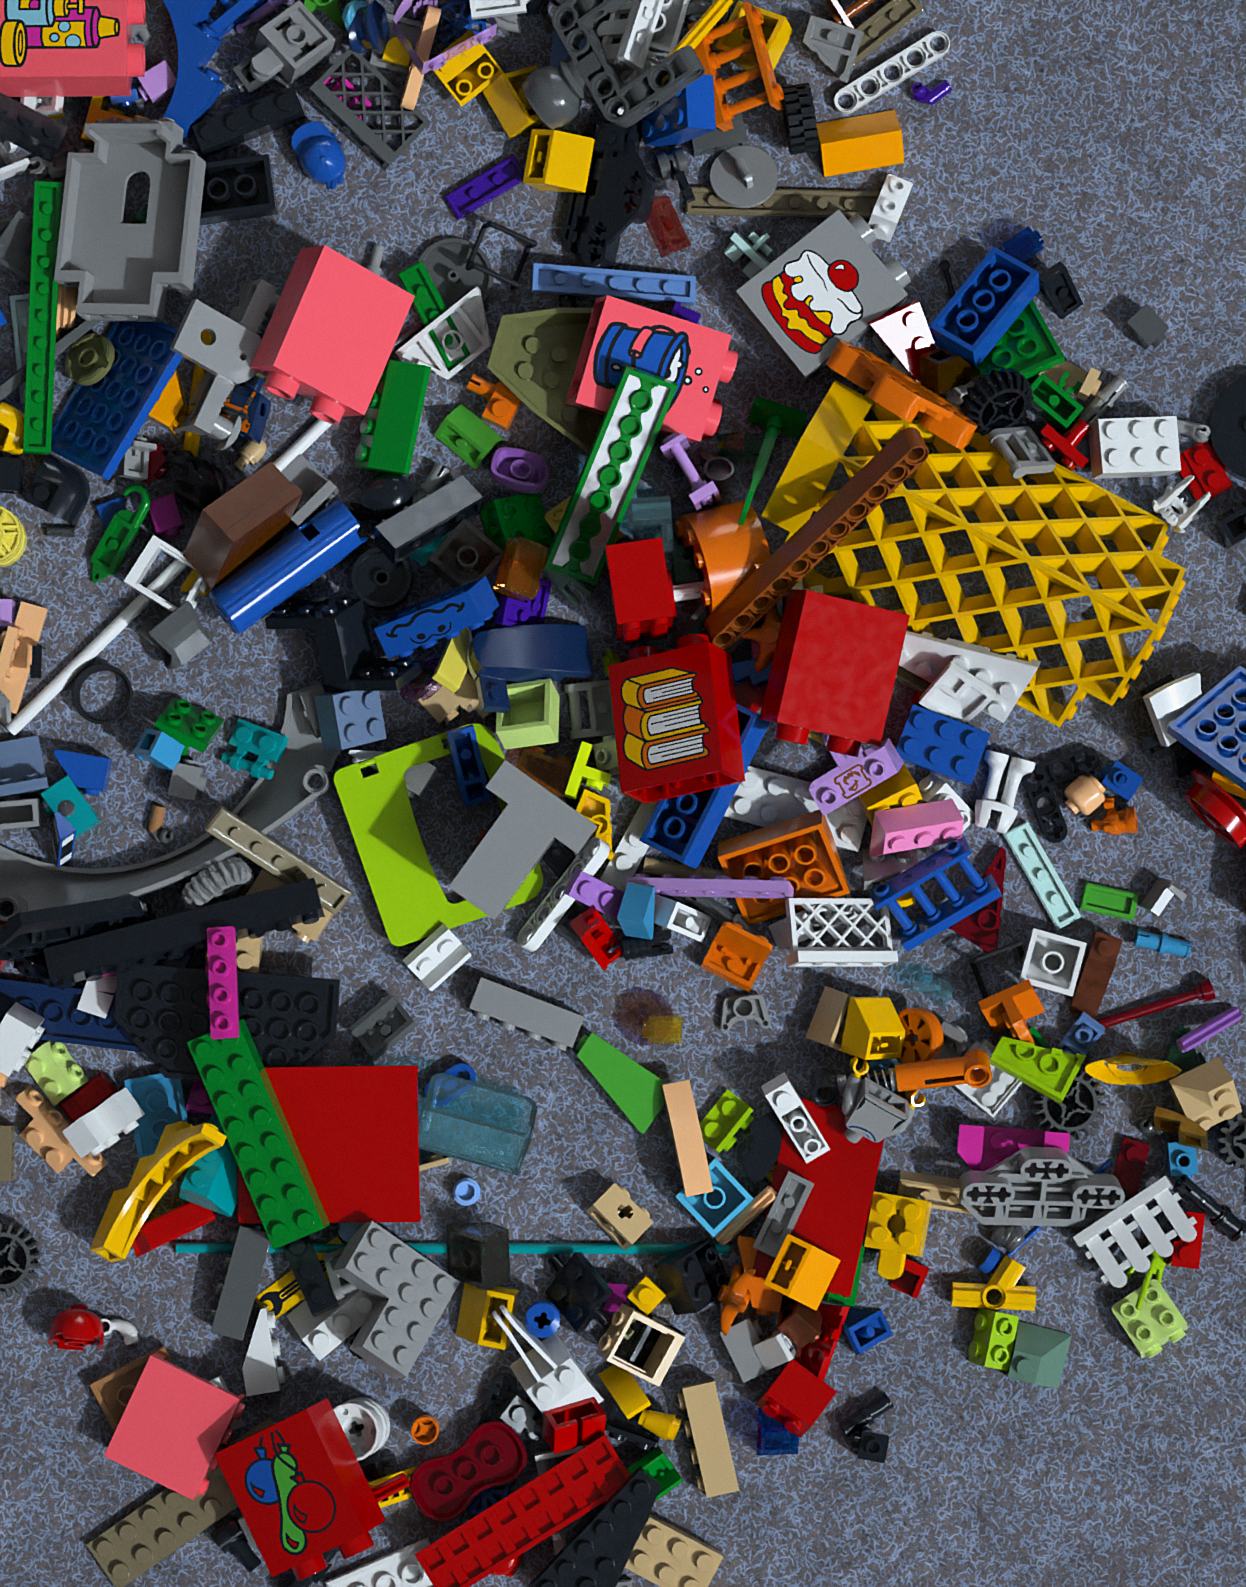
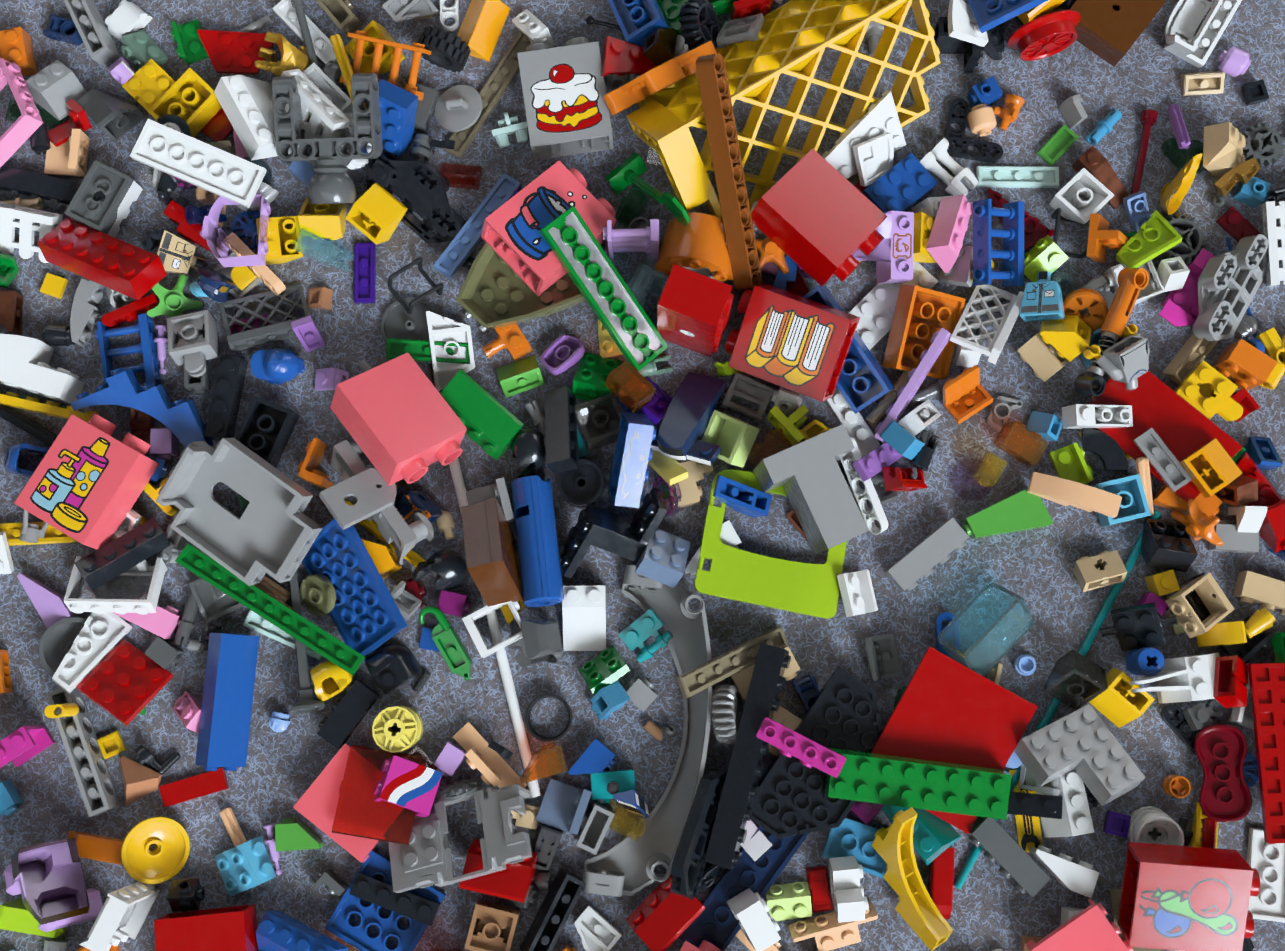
camera: 55 degrees left, 5 degrees down
(36, 847) = (628, 824): none -> clear yellow brick
(50, 719) = (544, 763): none -> clear orange slope
(160, 47) = (141, 425): none -> copper slope
(221, 262) = (308, 470): none -> orange bracket
(235, 670) = (584, 618): none -> white slope
(295, 963) = (807, 691): none -> dark blue piece
(339, 226) = (328, 378): none -> lavender bracket
(346, 1386) = (1117, 823): none -> dark purple plate
(375, 168) = (308, 333): none -> medium lavender plate
(426, 154) = (320, 298): none -> nougat slope
(480, 123) = (321, 250): none -> clear light blue hinge
(716, 1048) = (1020, 443): none -> clear orange brick
(755, 1065) = (1045, 425): none -> dark azure brick
(896, 980) = (1042, 300): none -> medium azure torso
(950, 957) = (1043, 257): none -> lime bracket
(955, 1254) = (1244, 365): none -> orange brick
(1018, 1114) = (1172, 273): none -> white brick

